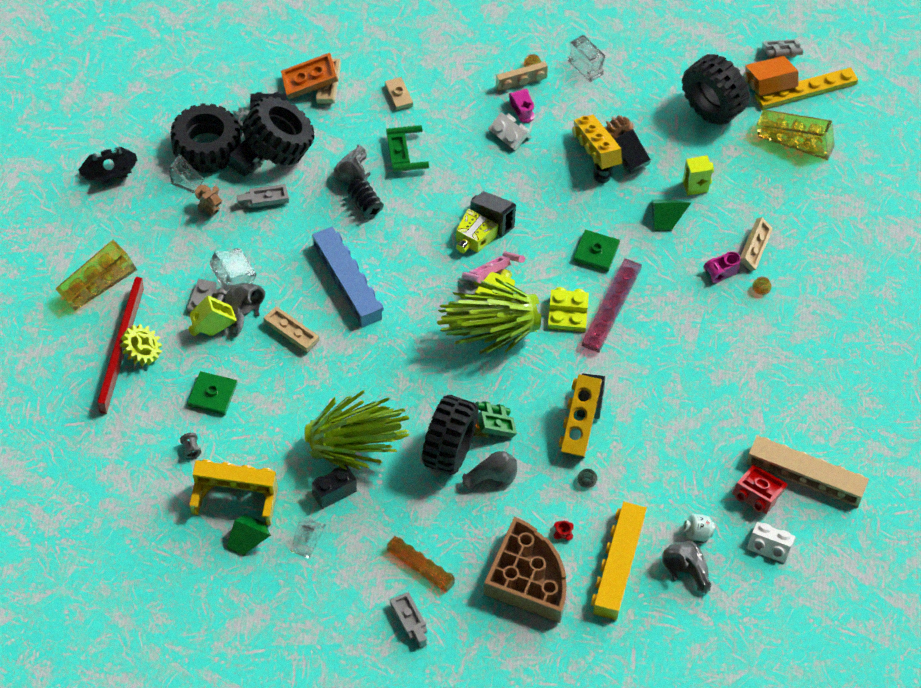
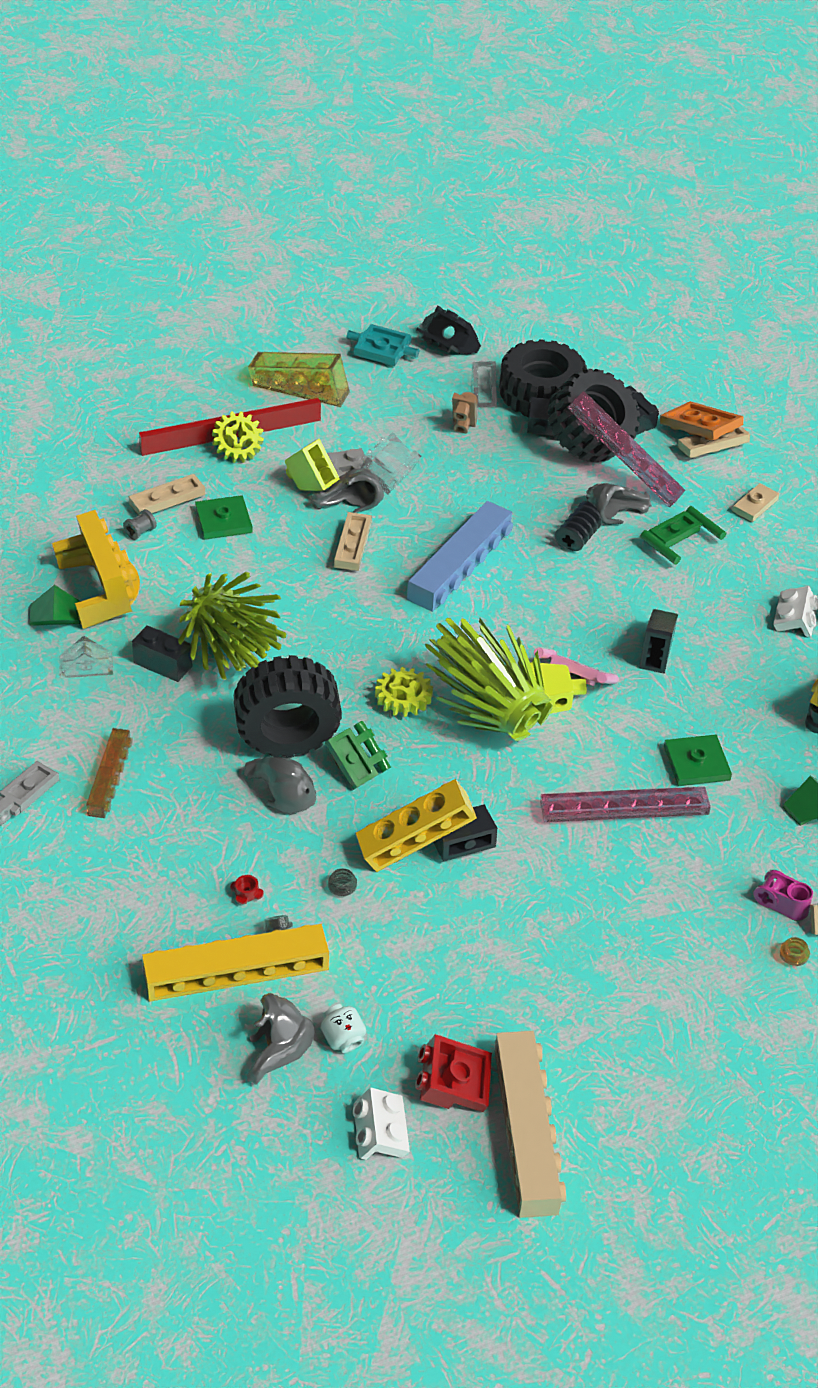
camera: 60 degrees right, 10 degrees down
(91, 210) = (382, 344): none -> teal plate
(169, 416) = (167, 494): none -> tan plate
(263, 196) = (512, 453): light grey hinge -> none
(323, 132) = (626, 449): none -> clear pink plate
(461, 369) = (403, 691): none -> neon yellow gear
(475, 232) = (617, 635): neon yellow torso -> none
(528, 573) = (154, 872): medium nougat brick -> none
(568, 310) = (582, 765): neon yellow plate -> none
(603, 526) = (277, 923): none -> clear smoke plate

